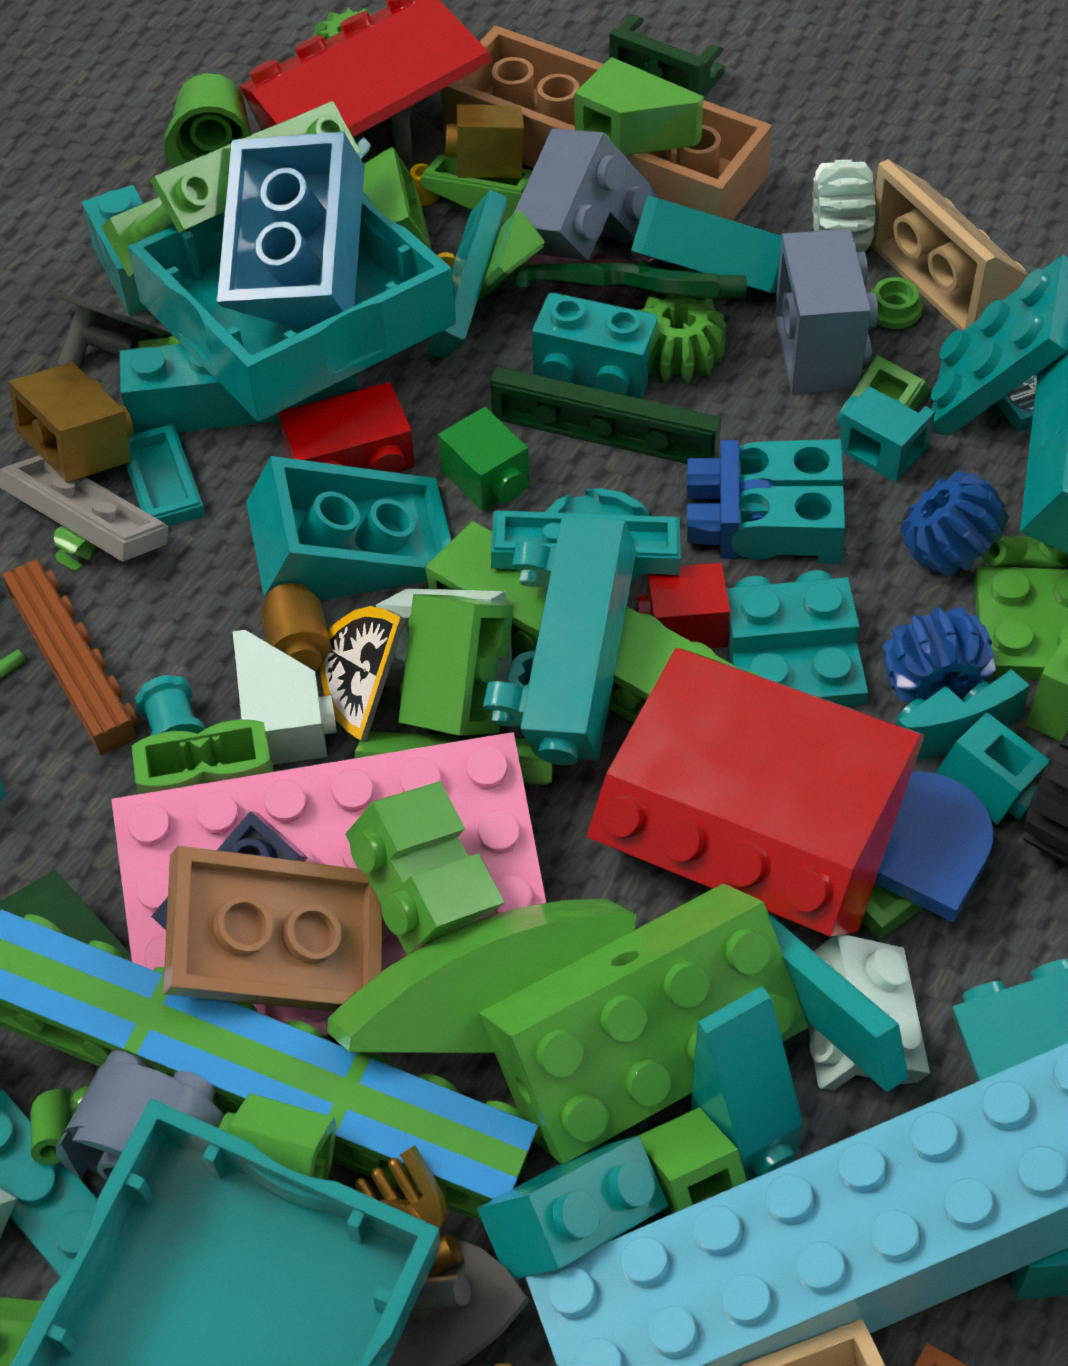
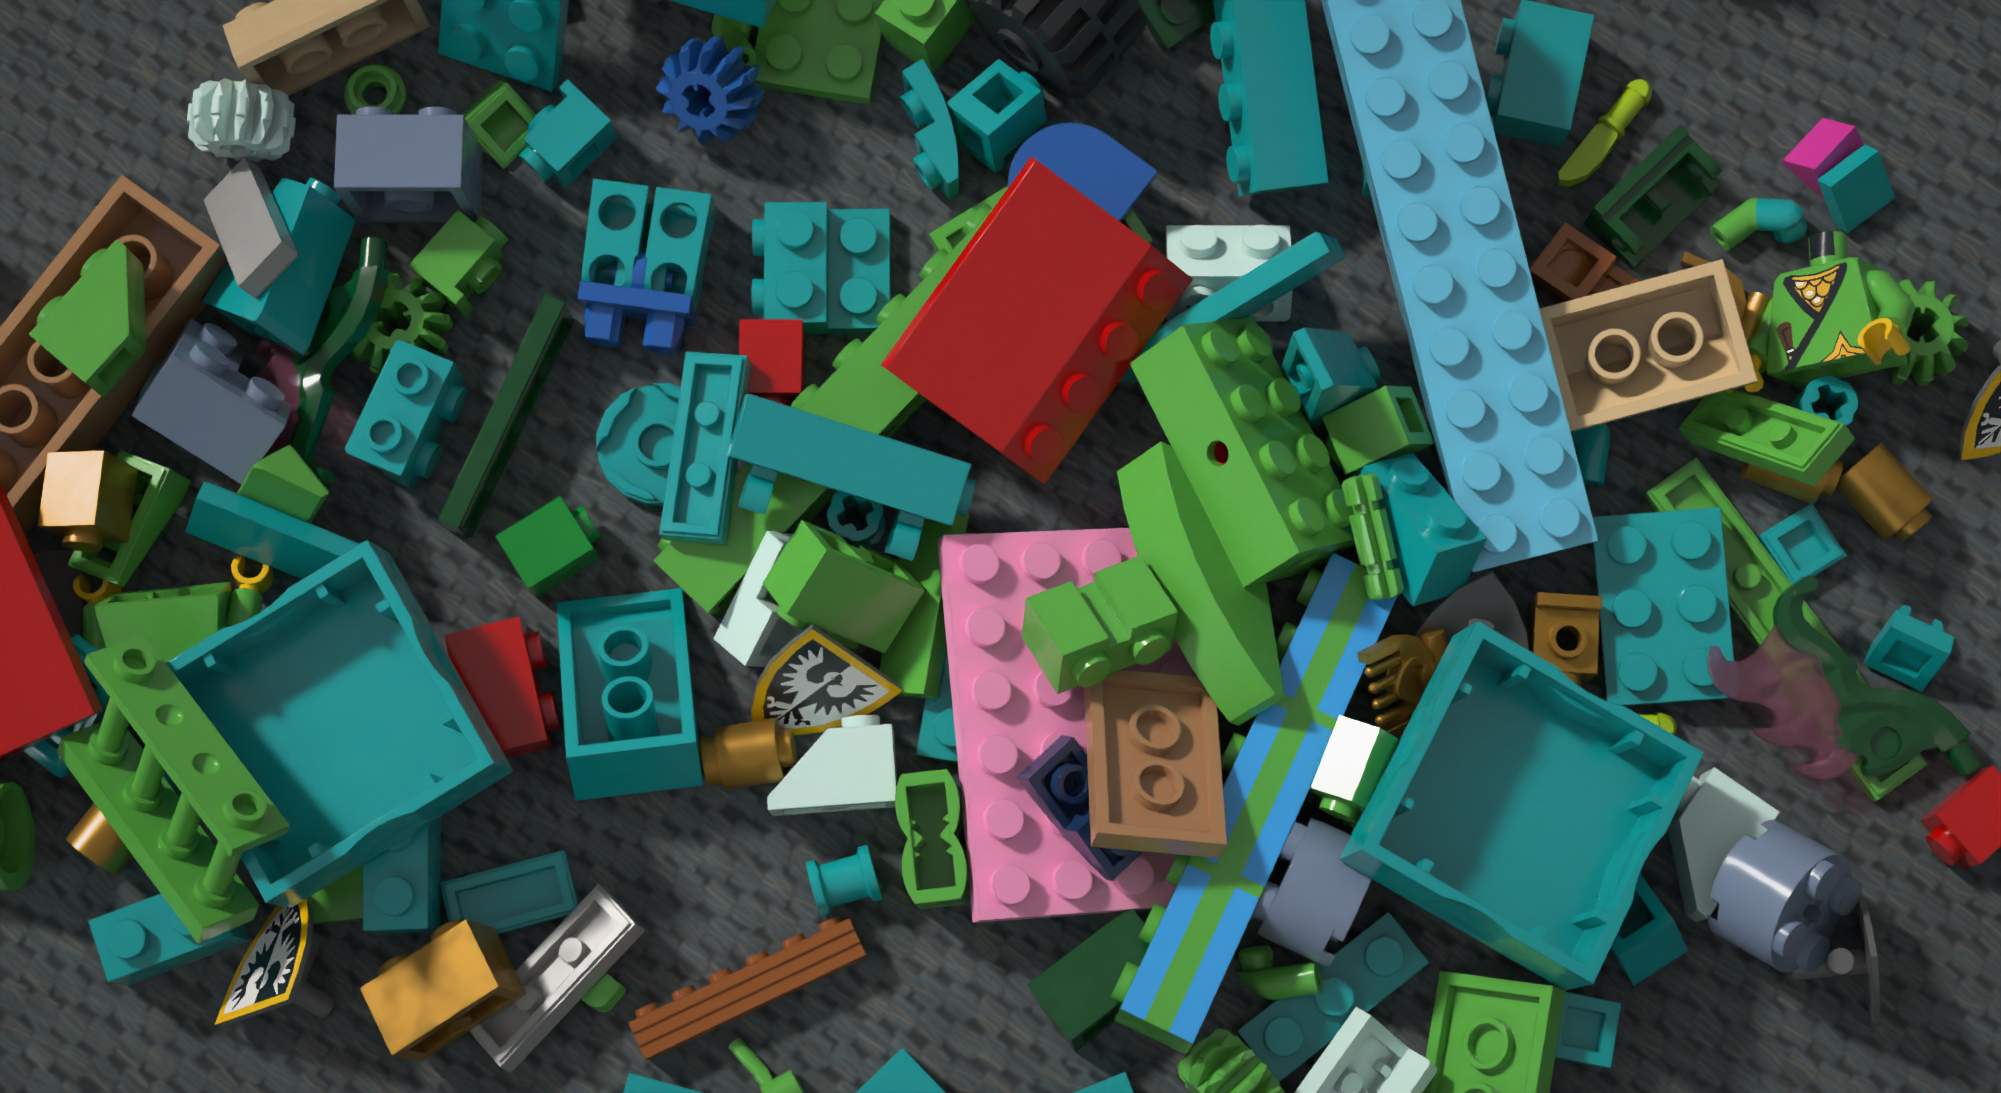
camera: 85 degrees left, 25 degrees up
(291, 228) = (288, 711): dark azure slope -> none
(552, 1148) = (1372, 536): none -> bright green axle
(738, 209) = (250, 228): none -> light grey tile
(746, 369) = (461, 260): none -> bright green brick
(938, 653) = (874, 134): blue gear -> none

